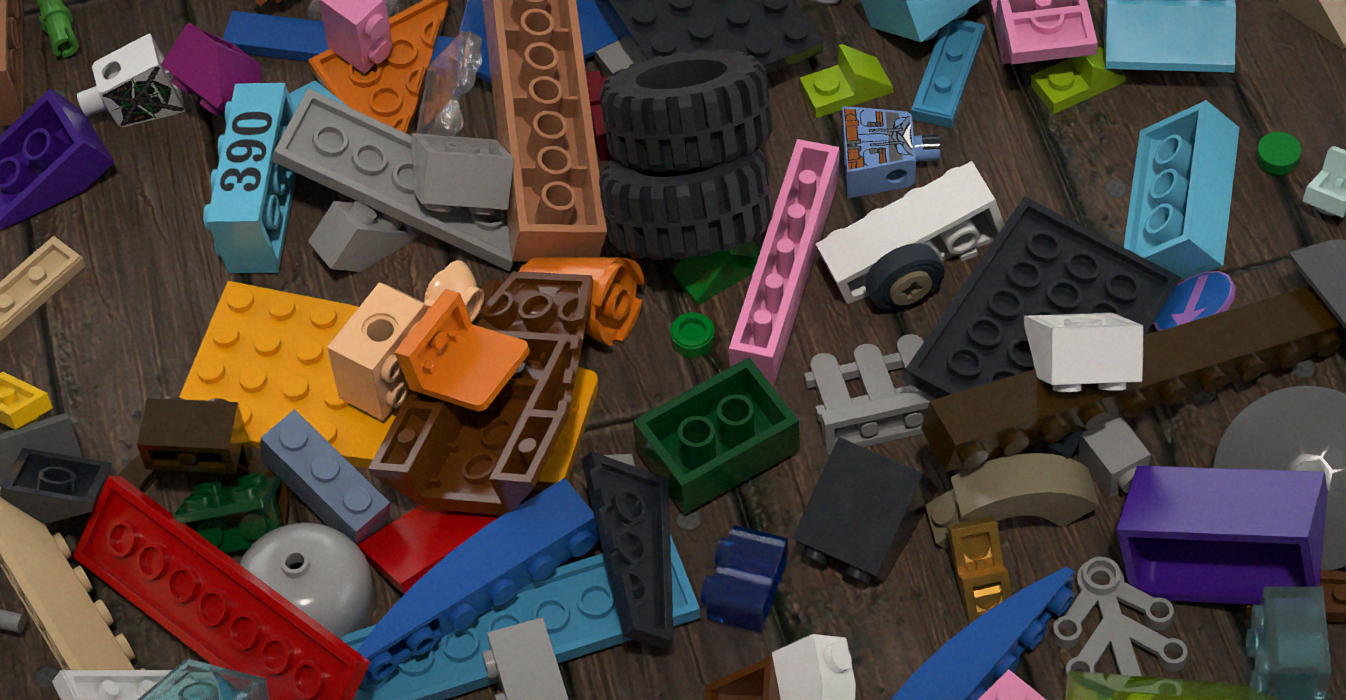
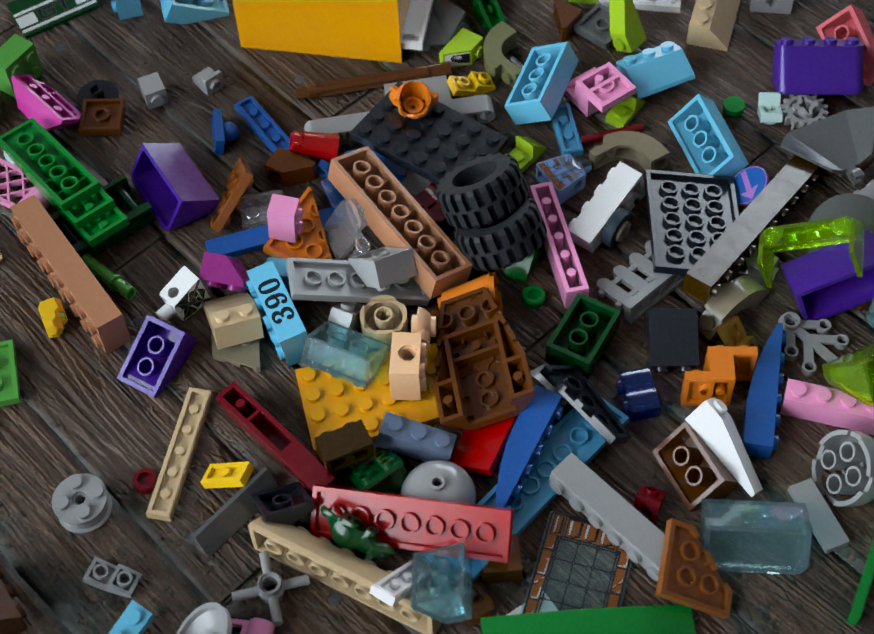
camera: 30 degrees left, 0 degrees up
(110, 367) = (273, 436): none -> dark red slope
(121, 584) = (350, 534): none -> dark green animal
(168, 209) = (241, 354): none -> dark tan wing
(174, 157) = (233, 320): none -> tan slope
(301, 283) = (344, 353): none -> clear light blue slope
(407, 254) = (383, 317): none -> tan brick
(457, 359) = (453, 351): orange bracket -> none
(894, 607) = (720, 371): none -> orange bracket
(1023, 111) = (599, 136): none -> dark red bar
(1032, 144) = (630, 146): none -> dark tan arch
(1085, 350) = (735, 220): white slope -> none
(1267, 458) = (810, 235): none -> clear neon green windscreen

